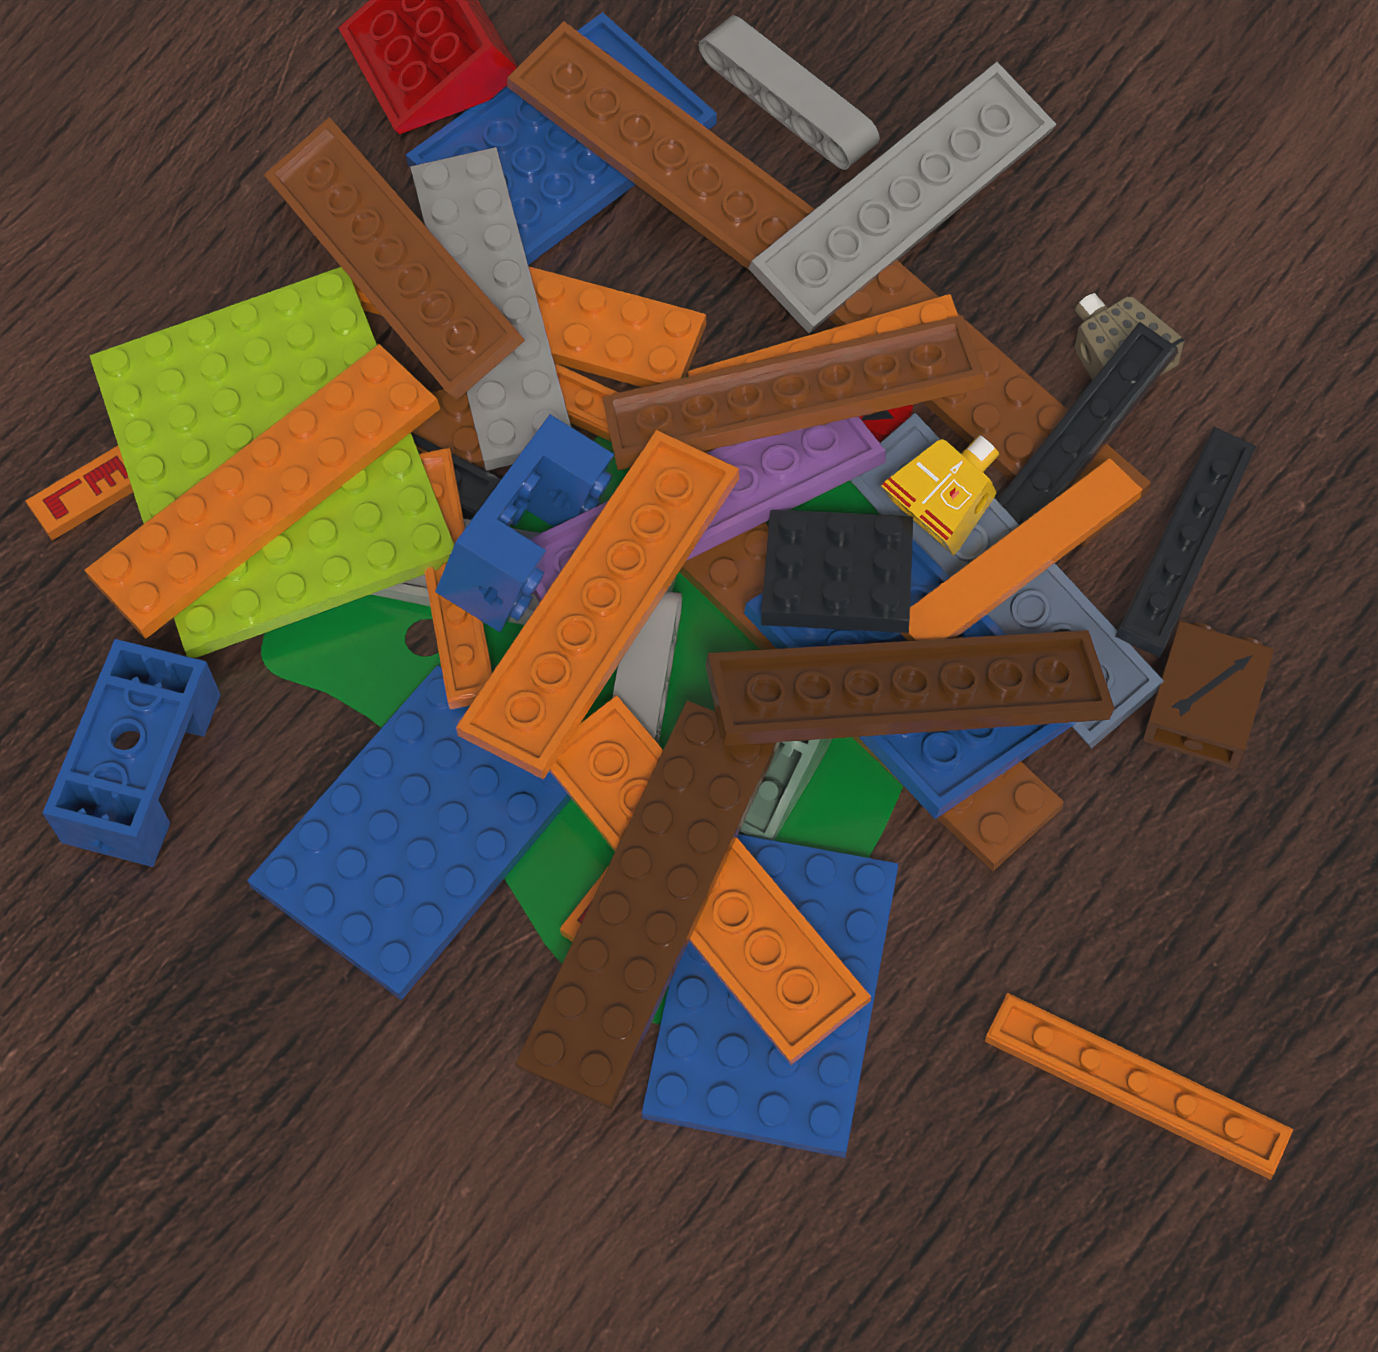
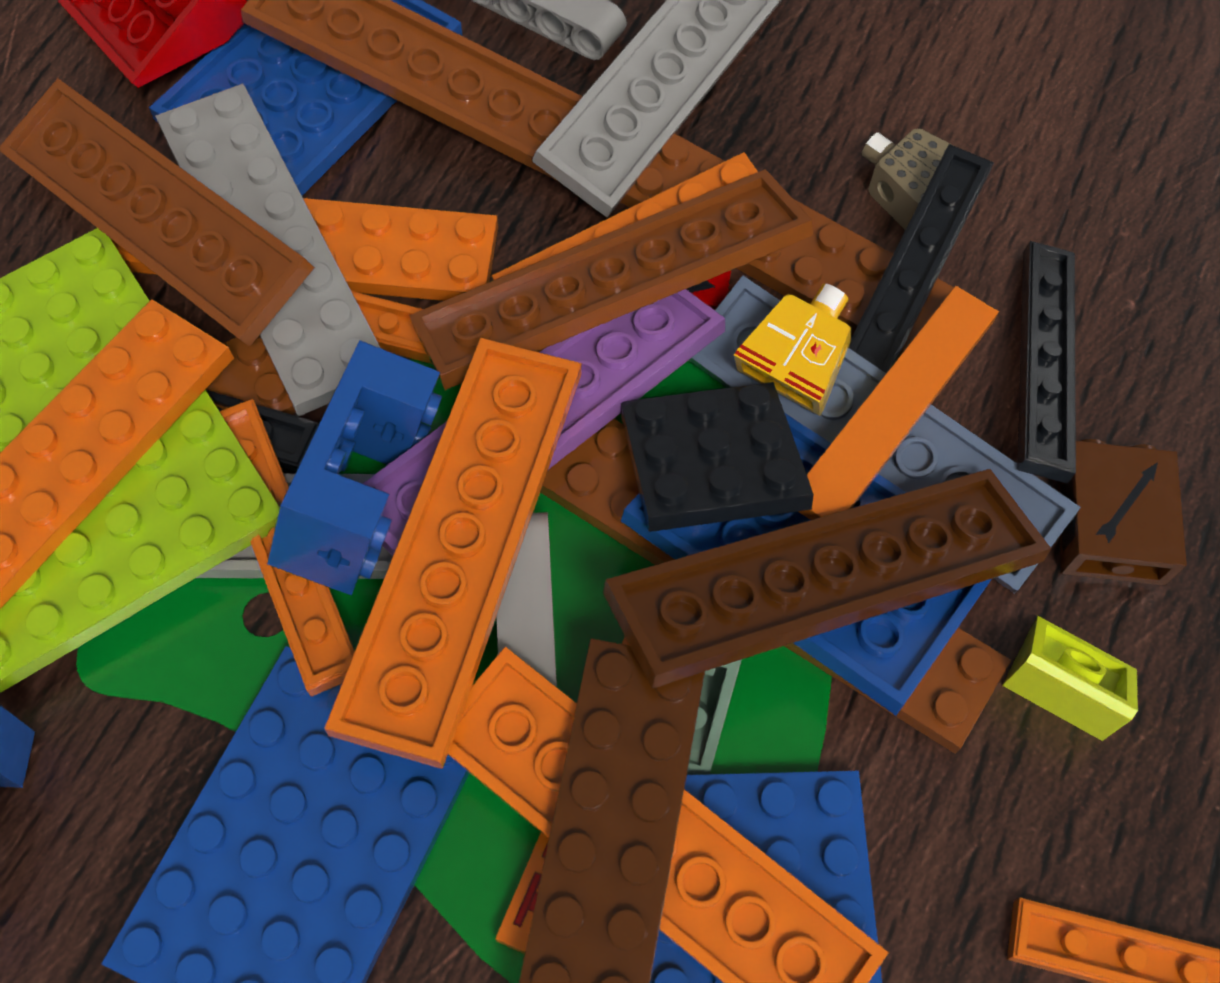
camera: 20 degrees left, 0 degrees up
(1115, 827) = (1074, 680): none -> neon yellow slope

